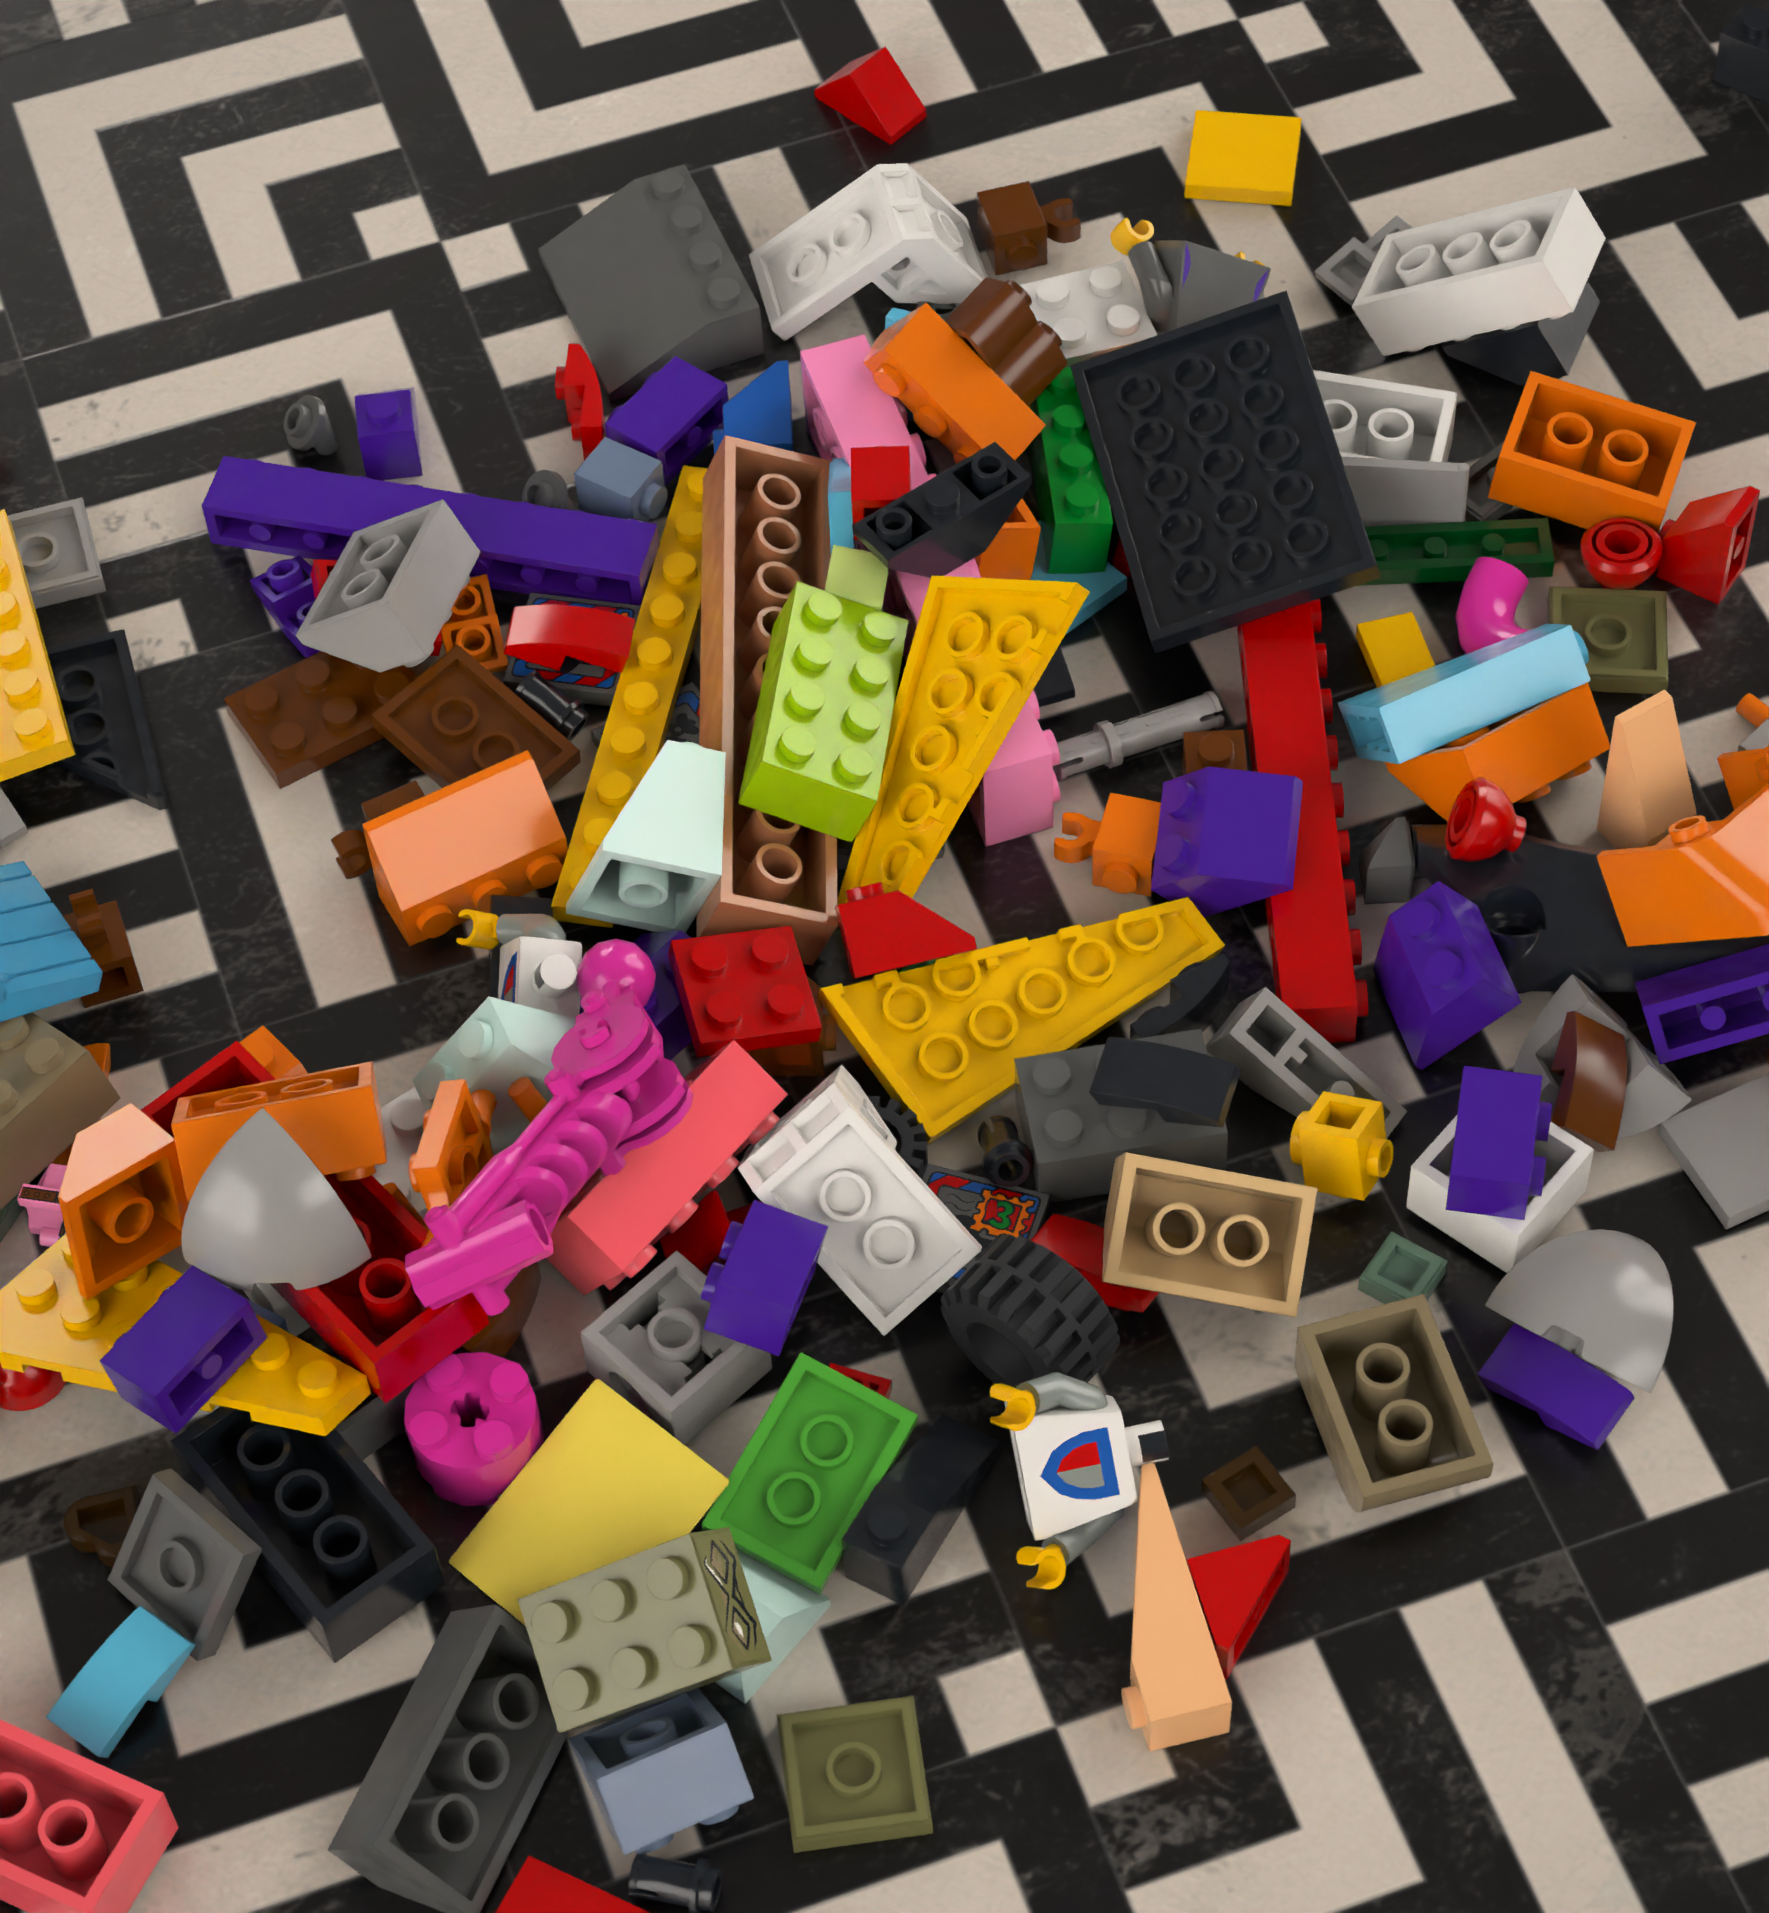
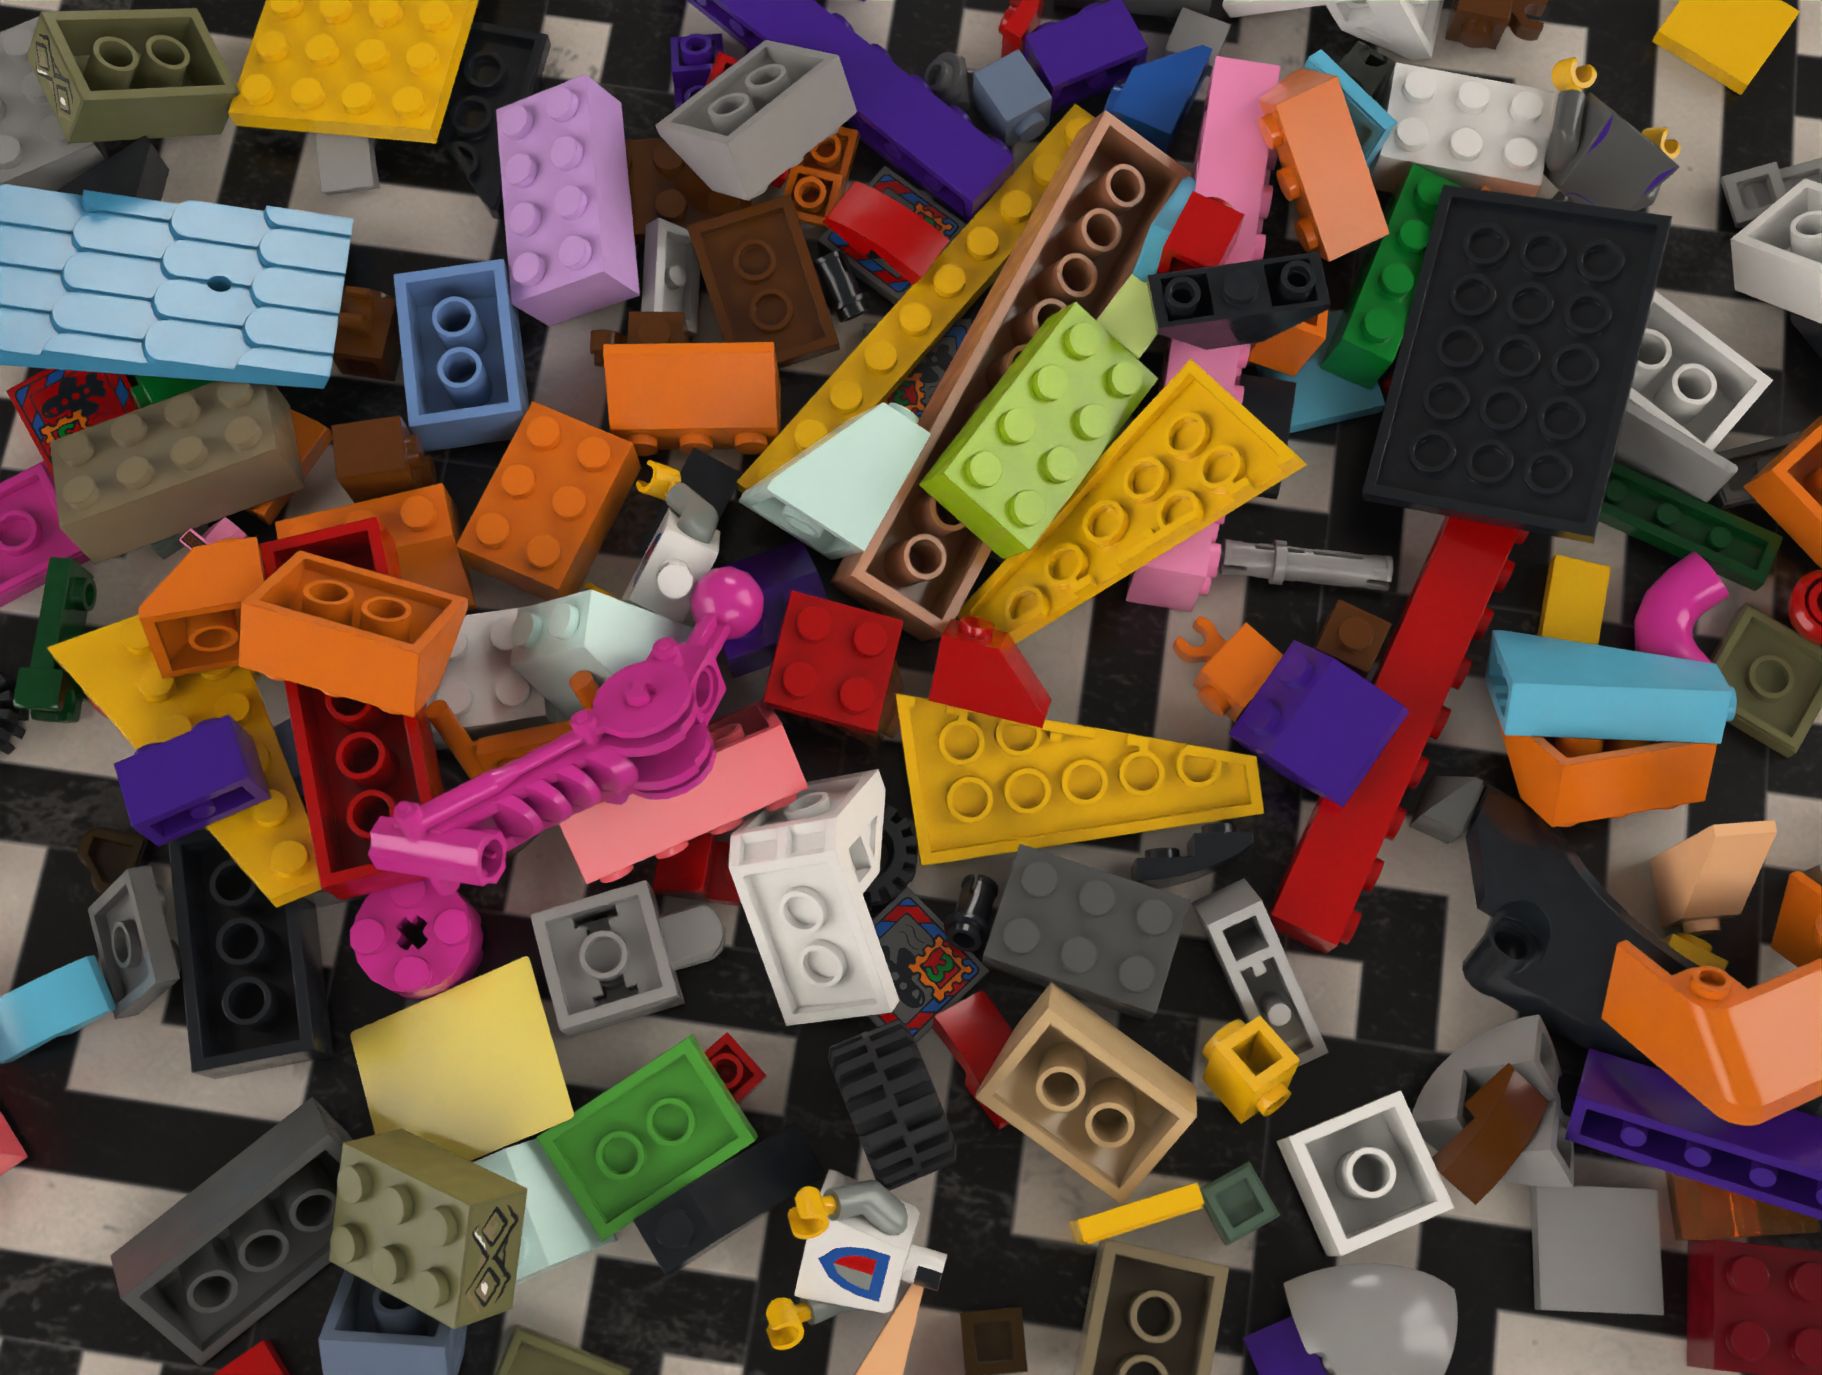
camera: 25 degrees right, 20 degrees up
(185, 1027) = (380, 458): none -> reddish brown brick
(212, 920) = (461, 354): none -> medium blue brick
(239, 747) = (567, 202): none -> lavender brick
(269, 1215) = (290, 718): light grey brick -> none
(368, 759) = (670, 272): none -> light grey plate
(377, 995) = (549, 504): none -> orange brick
(452, 1144) = (488, 725): orange plate -> none
(757, 358) = (1195, 30): none -> light grey tile
(763, 1277) = (695, 954): dark purple brick -> none
(1009, 338) = (1398, 138): reddish brown brick -> none
(1167, 1079) = (1122, 952): black slope -> none
(1319, 1291) = (1136, 1214): none -> yellow tile
(1441, 973) = (1428, 954): dark purple slope -> none
(1482, 823) = (1540, 838): red brick -> none
(1496, 1142) = (1370, 1170): dark purple brick -> none

